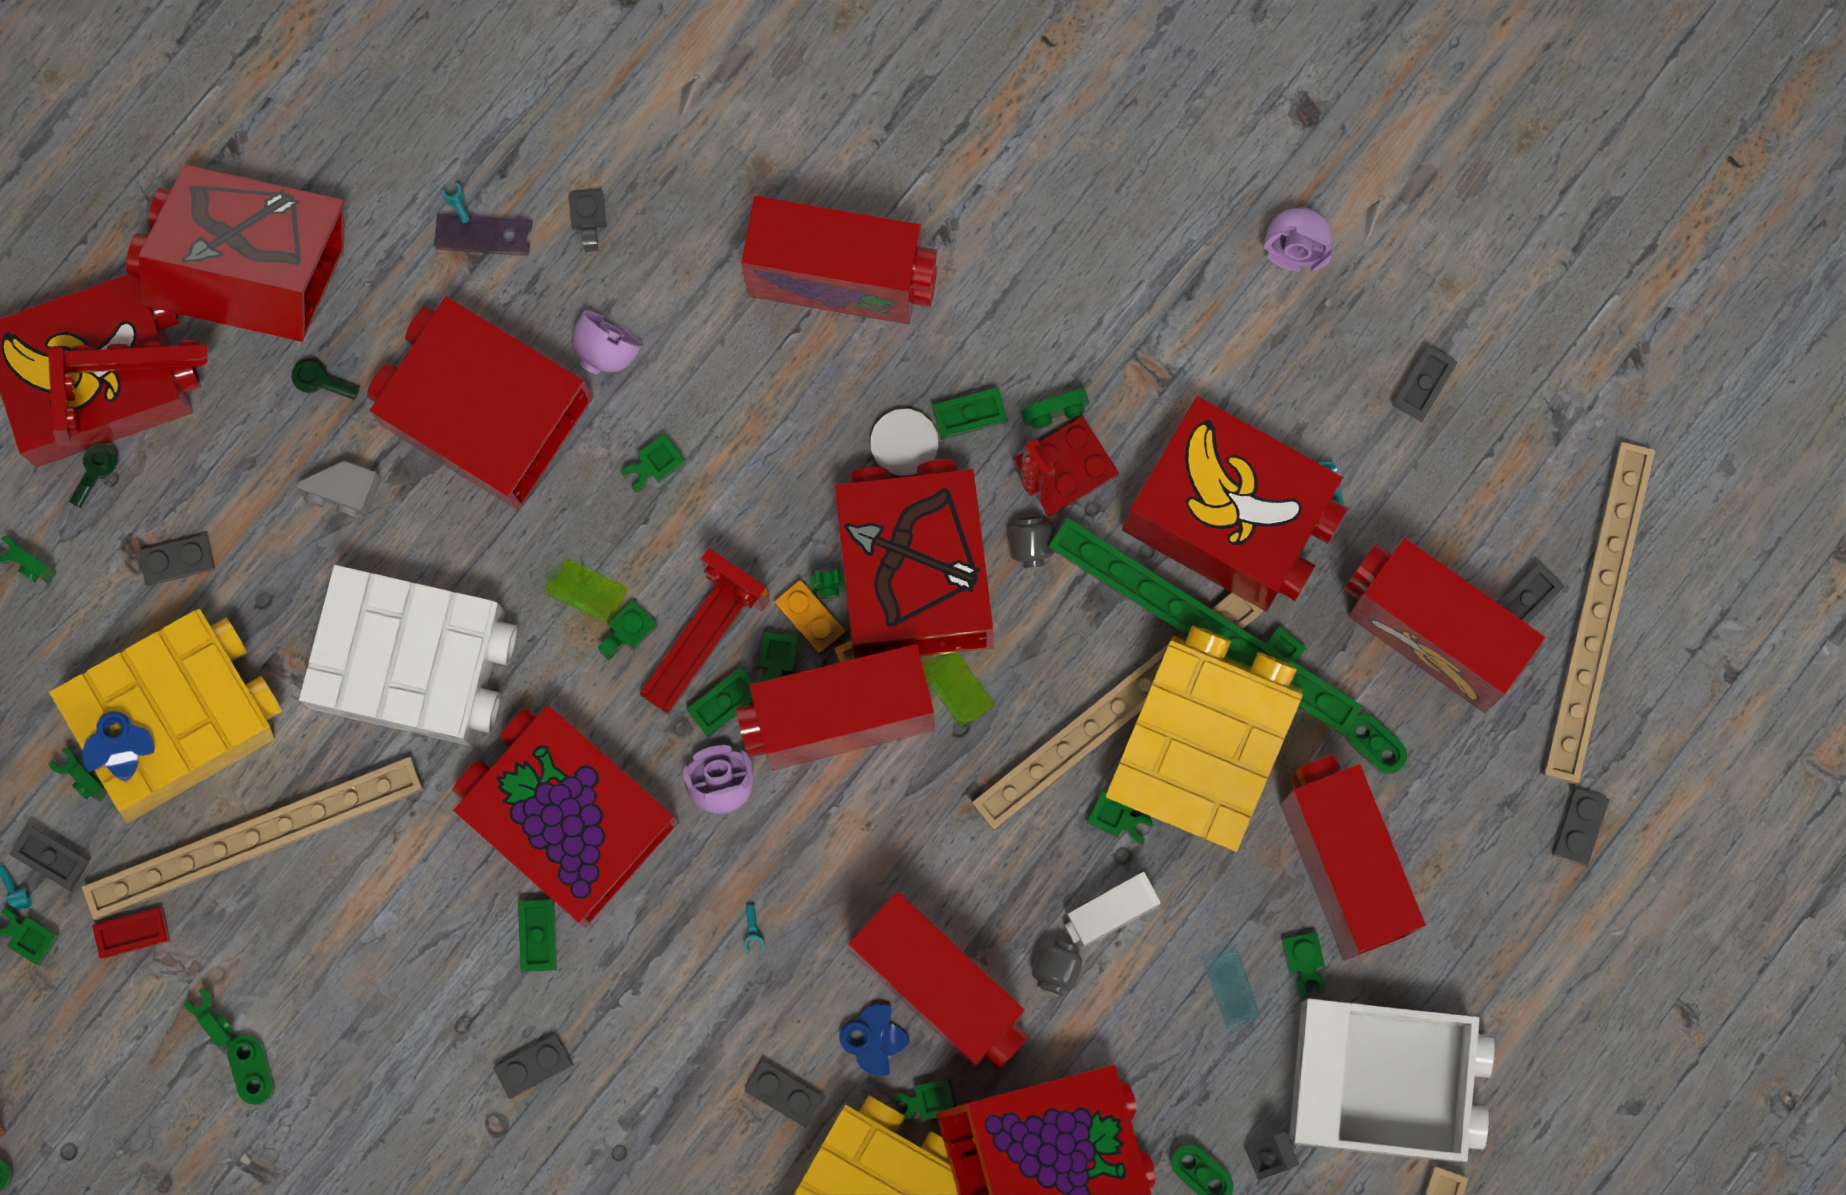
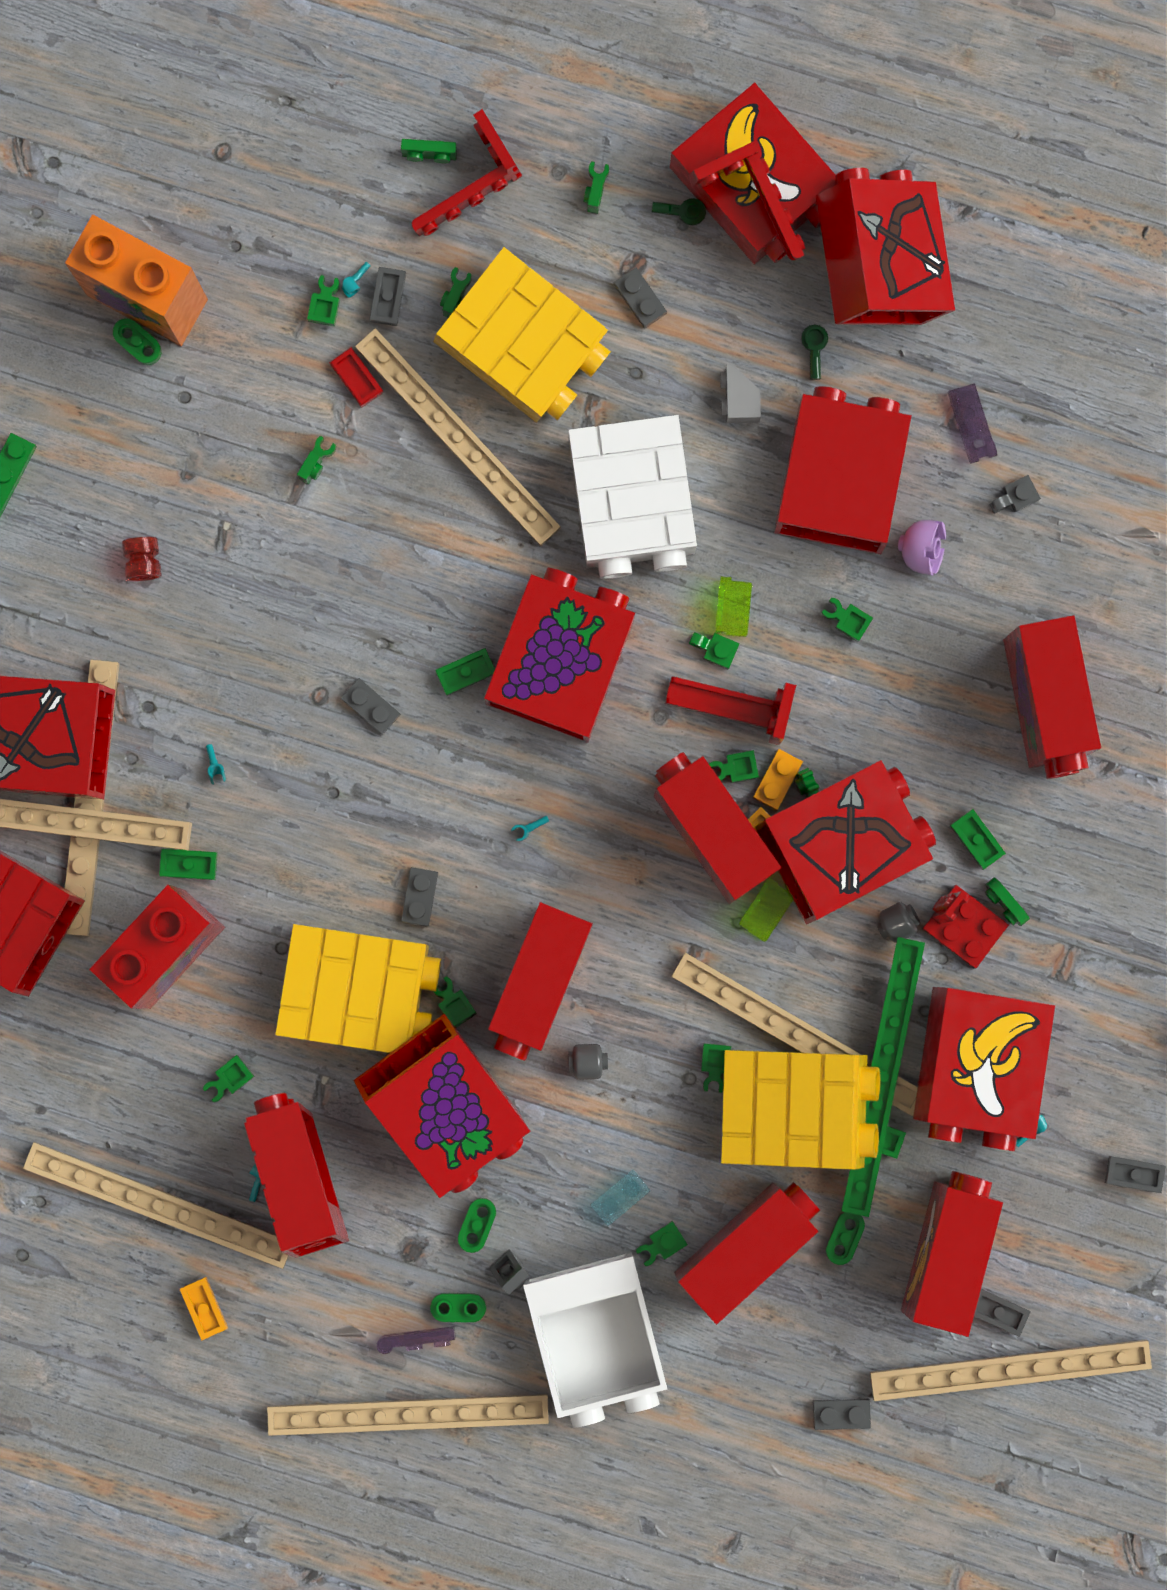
camera: 65 degrees right, 5 degrees up
(120, 751) = (479, 315): blue plate -> none
(251, 1069) = (293, 506): green plate -> none
(457, 202) = (989, 394): teal hand -> none
(719, 704) = (689, 740): green plate -> none
(719, 779) = (630, 759): lavender cylinder -> none
(879, 1039) = (485, 950): blue plate -> none
(903, 442) = (936, 798): white tile -> none
(1112, 910) = (644, 1086): white slope -> none

